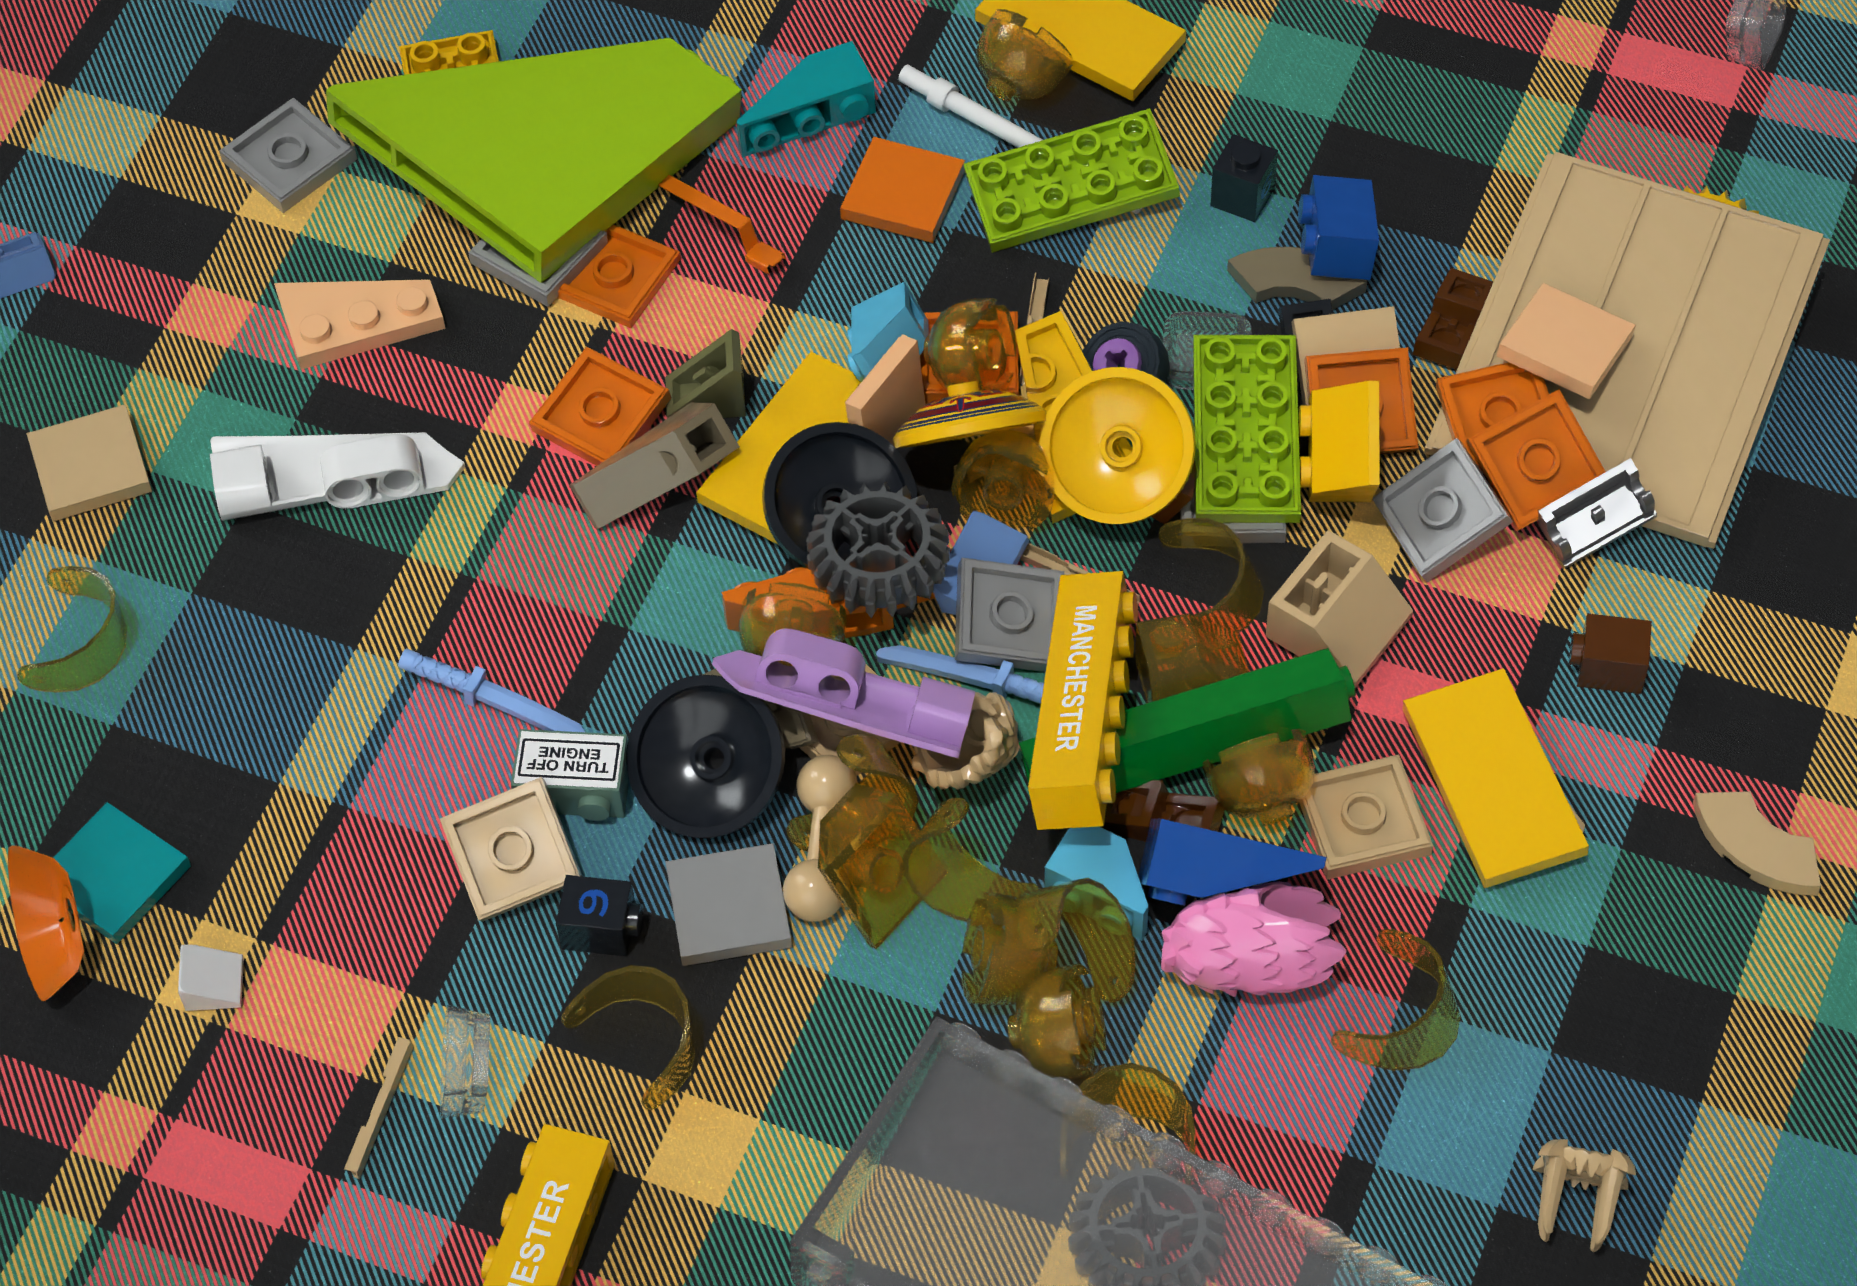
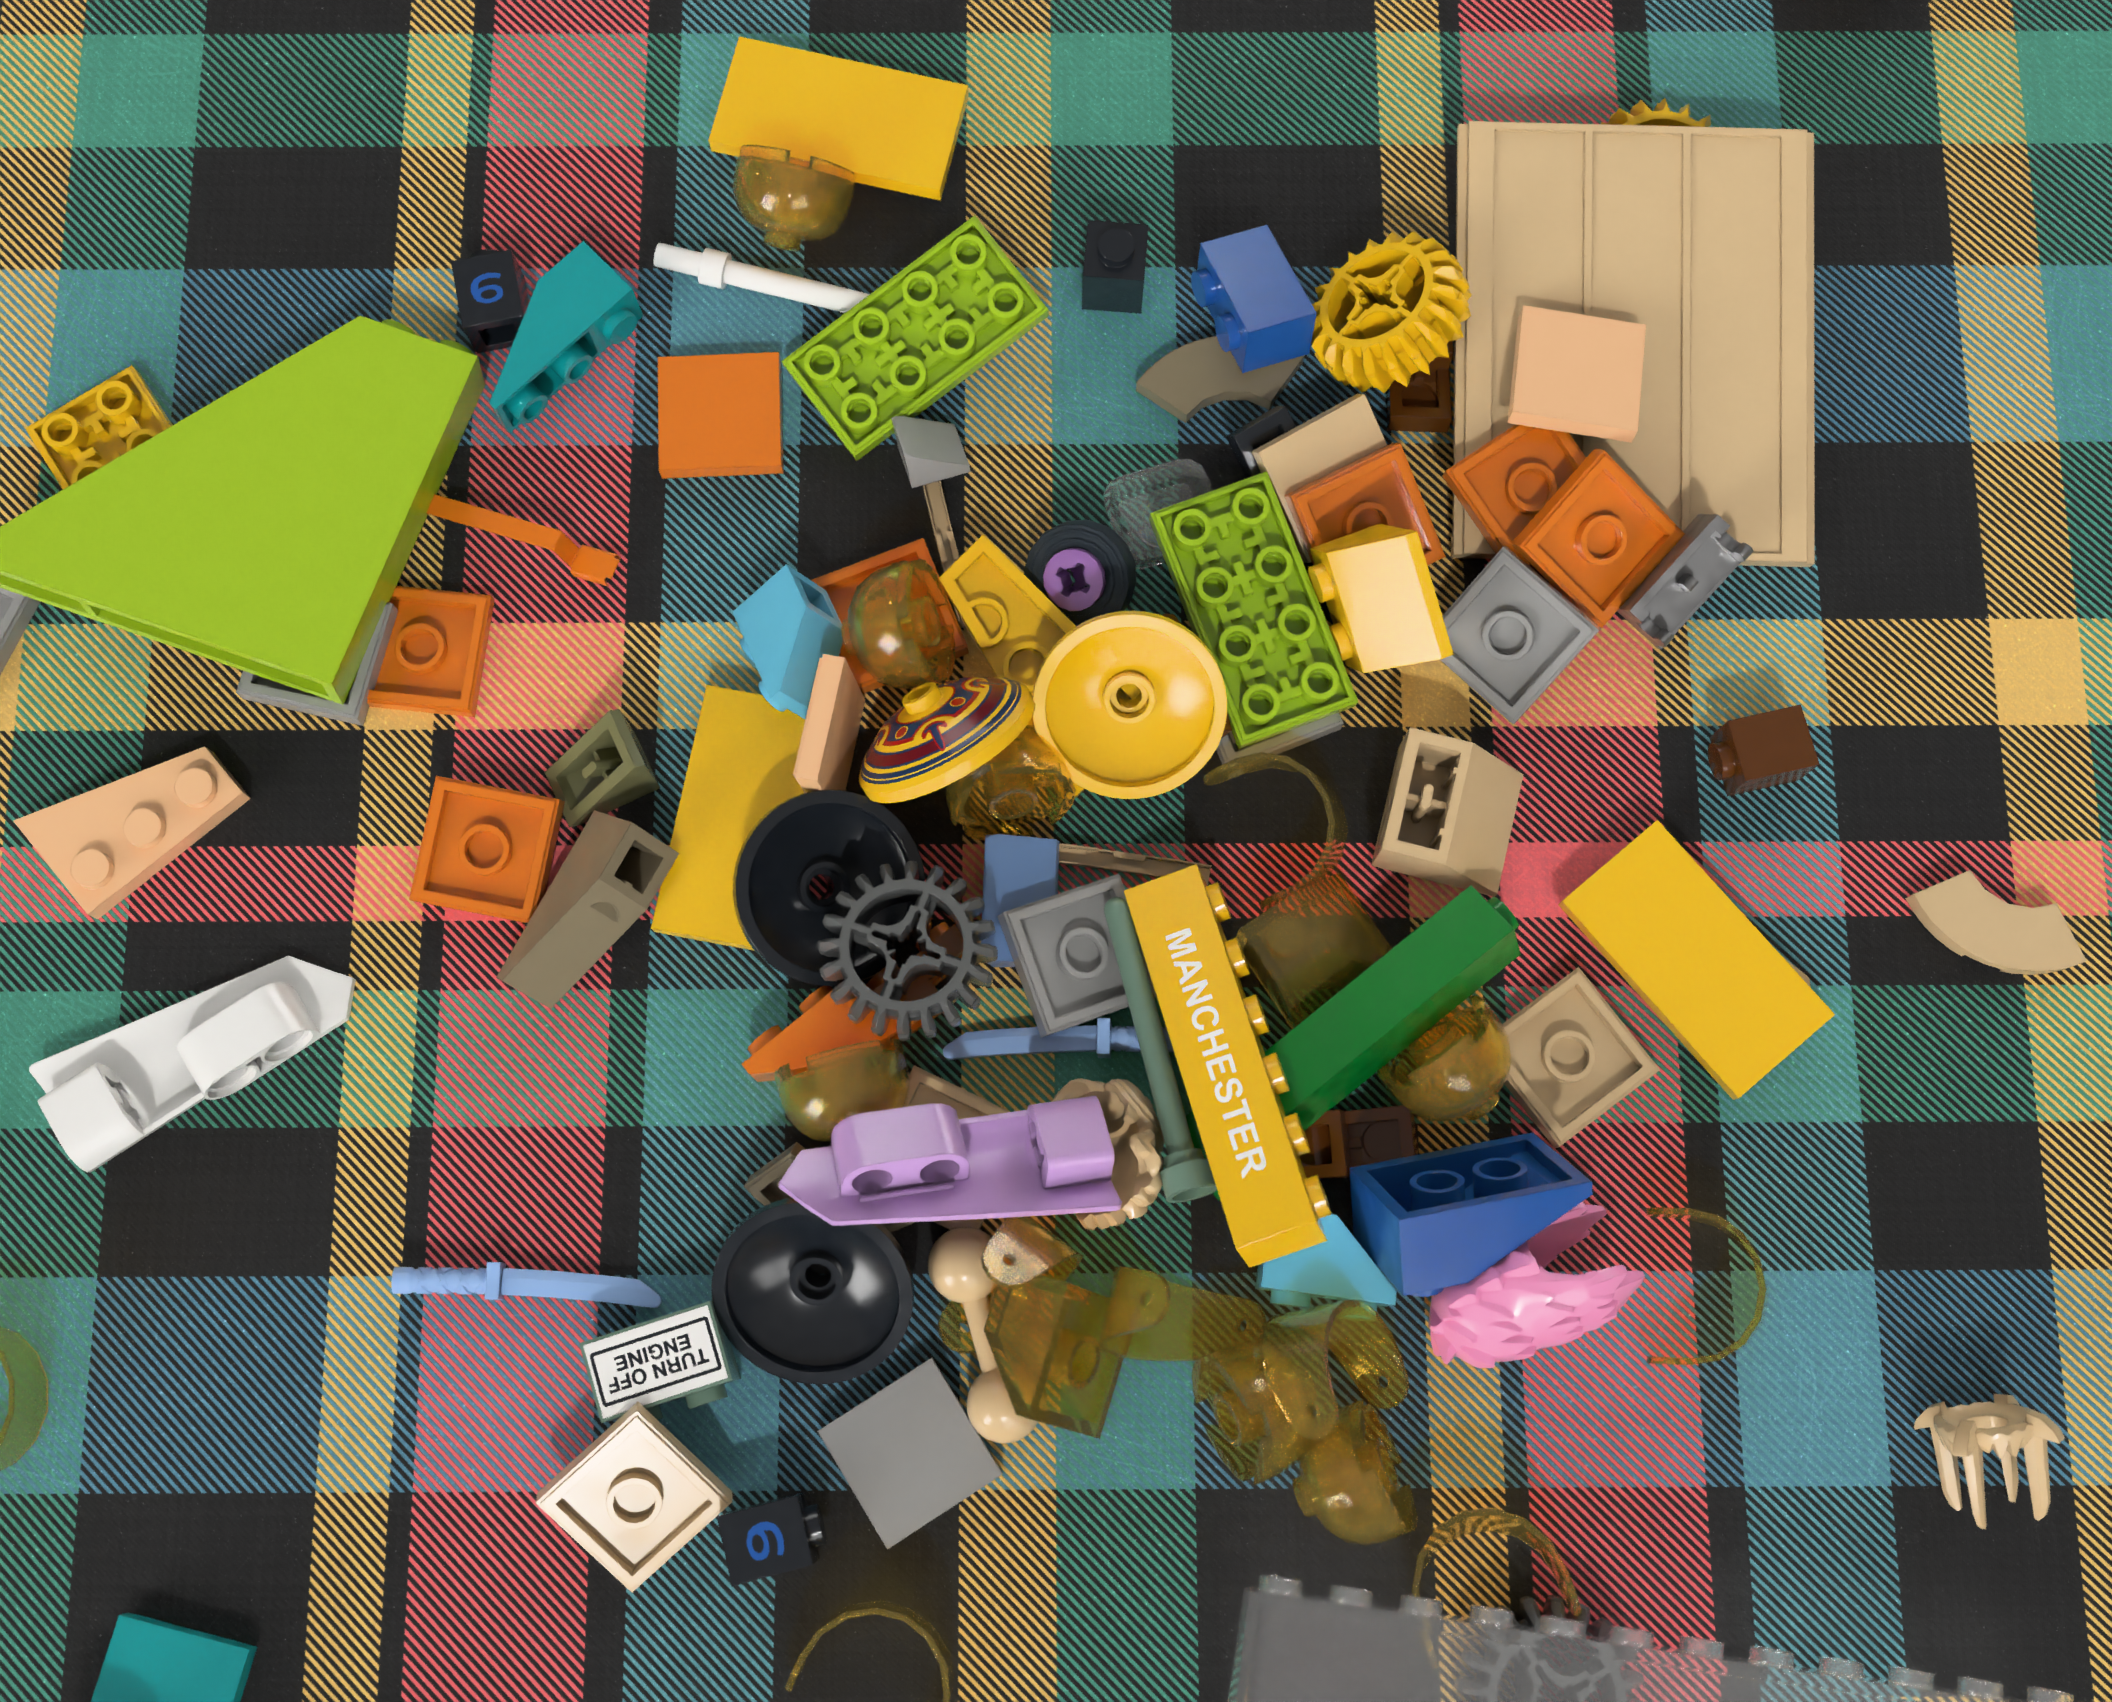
camera: 25 degrees left, 20 degrees up
(767, 60) = (490, 298): none -> black brick
(1016, 755) = (1186, 1171): none -> sand green piece
(1048, 255) = (929, 450): none -> light grey slope
(1439, 262) = (1390, 312): none -> yellow gear

